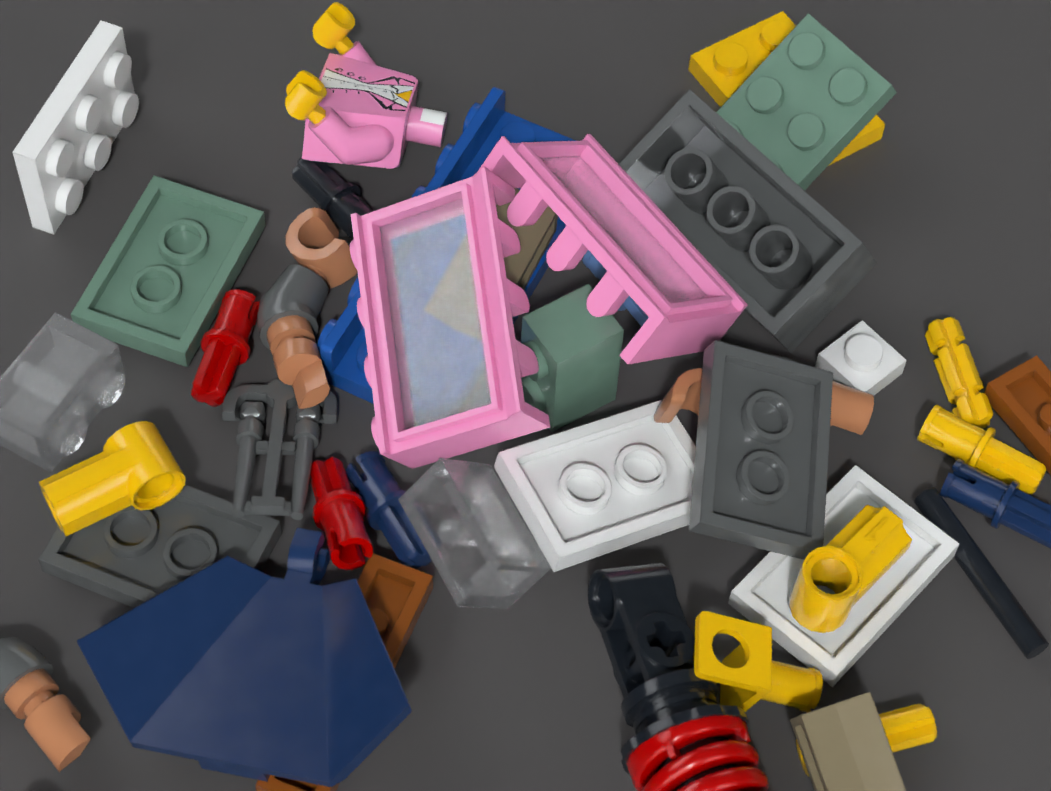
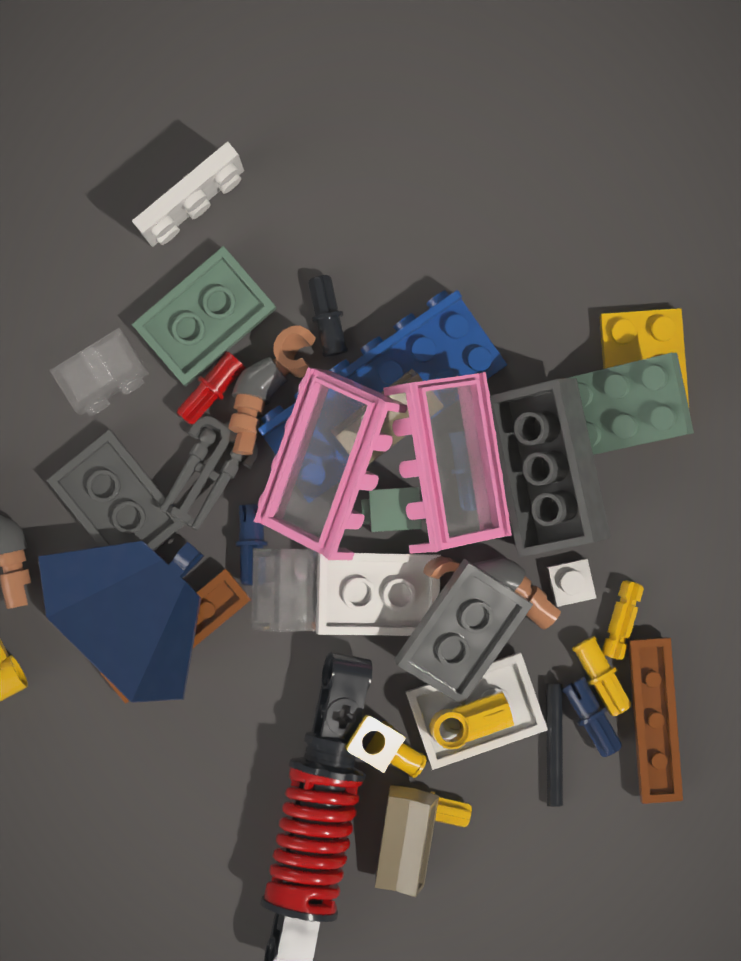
camera: 30 degrees right, 30 degrees up
(130, 471) = (113, 459): yellow piece -> none
(339, 514) = (220, 533): red axle -> none
(355, 107) = (369, 260): bright pink torso -> none

